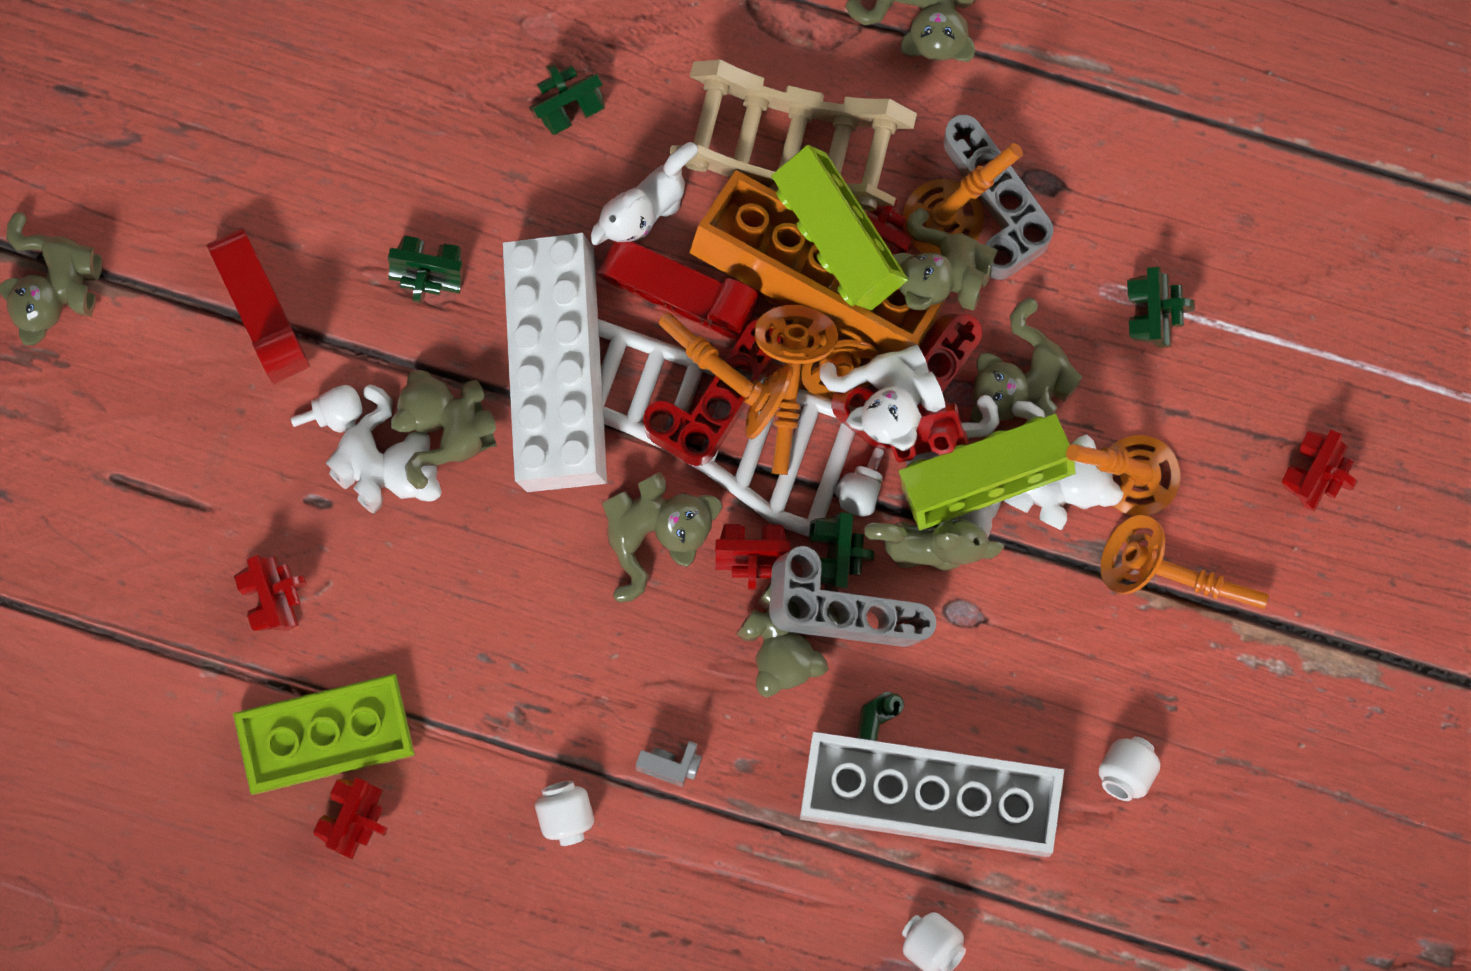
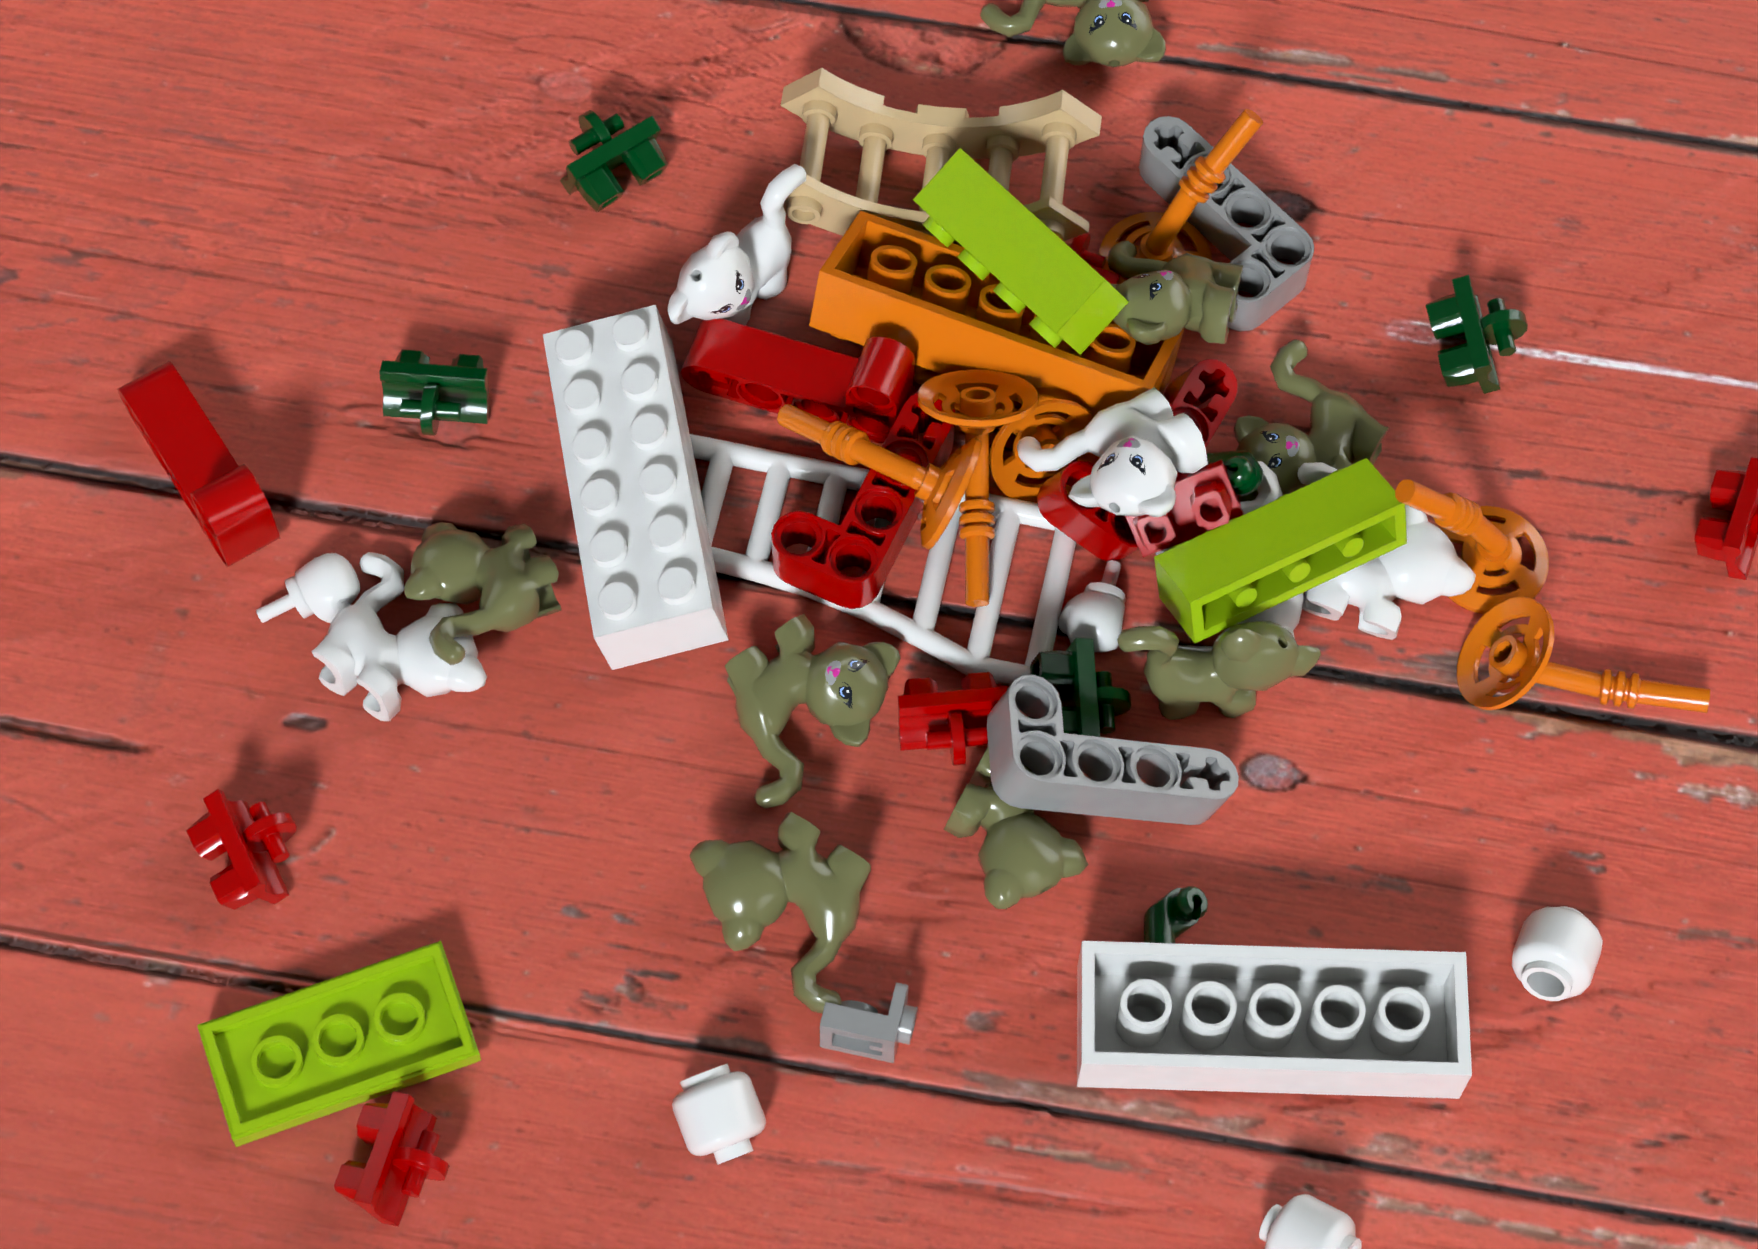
camera: 10 degrees left, 15 degrees down
(604, 660) = (753, 886): none -> olive animal
(967, 400) = (1241, 468): none -> dark green arm

